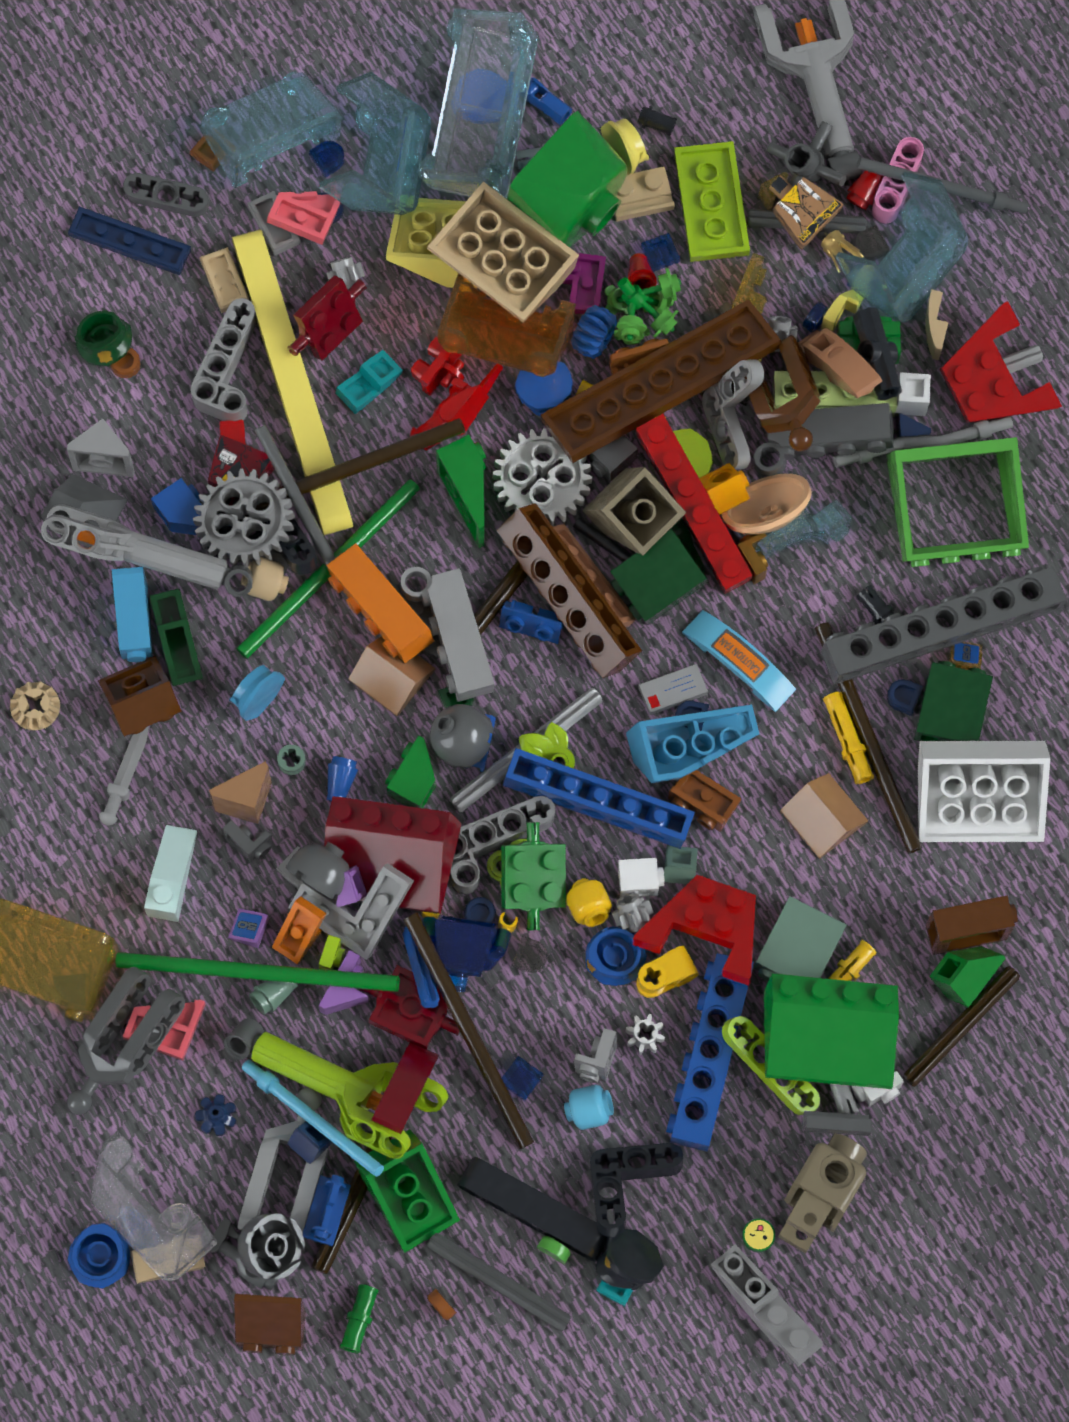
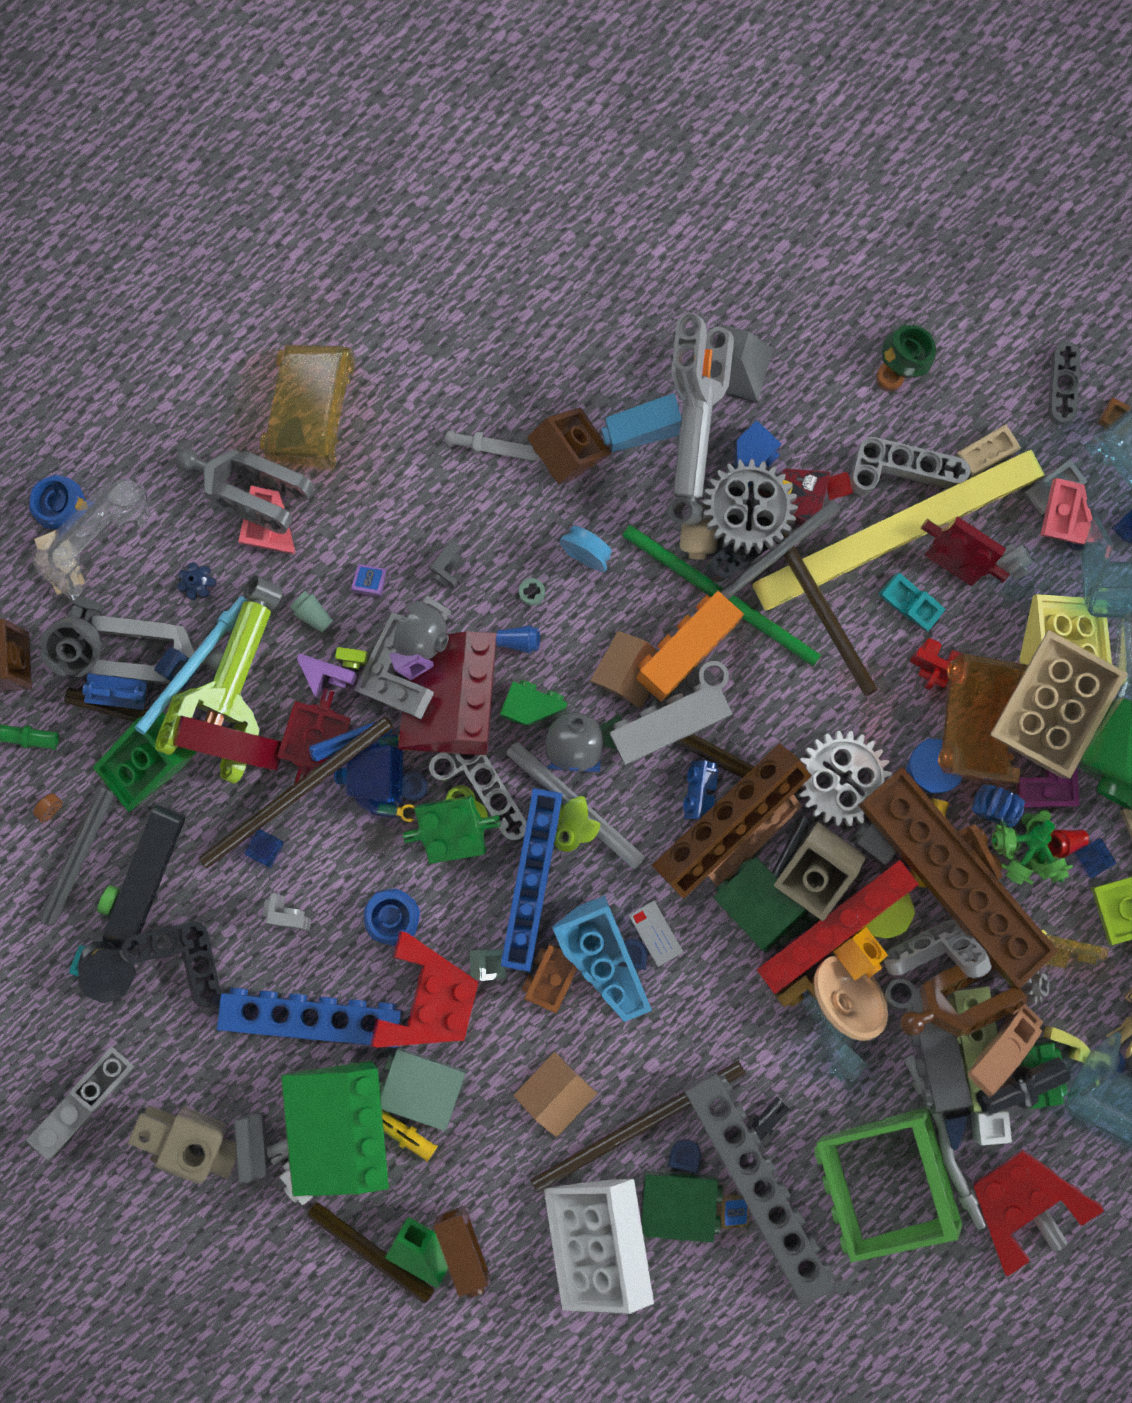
camera: 80 degrees right, 10 degrees up
(35, 719) = (549, 368): tan gear -> none
(100, 452) = (796, 365): light grey slope -> none
(129, 240) = (1012, 358): dark blue tile -> none
(170, 873) = (407, 502): light aqua slope -> none
(176, 637) = (631, 467): dark green slope -> none
(243, 794) = (485, 555): medium nougat slope -> none
(258, 971) = (323, 595): green piece -> none
(299, 930) = (369, 625): orange slope -> none
(462, 403) = (897, 688): red animal -> none
(462, 474) = (832, 703): green slope -> none
(589, 902) = (435, 884): yellow head -> none
(589, 1107) = (243, 913): medium azure head -> none
(632, 912) = (430, 926): light grey gear -> none
(640, 877) = (466, 928): white brick -> none
(642, 1042) = (310, 954): white gear -> none
(671, 969) = (383, 972): yellow piece -> none
(740, 658) = (695, 992): medium azure slope -> none
(746, 1054) = (309, 1052): lime beam -> none
(758, 1235) = (148, 1086): light yellow tile -> none
(815, 317) = (1055, 1019): clear blue tile -> none
(853, 750) = (632, 1108): yellow pin -> none
(935, 328) = (1063, 1139): tan slope -> none

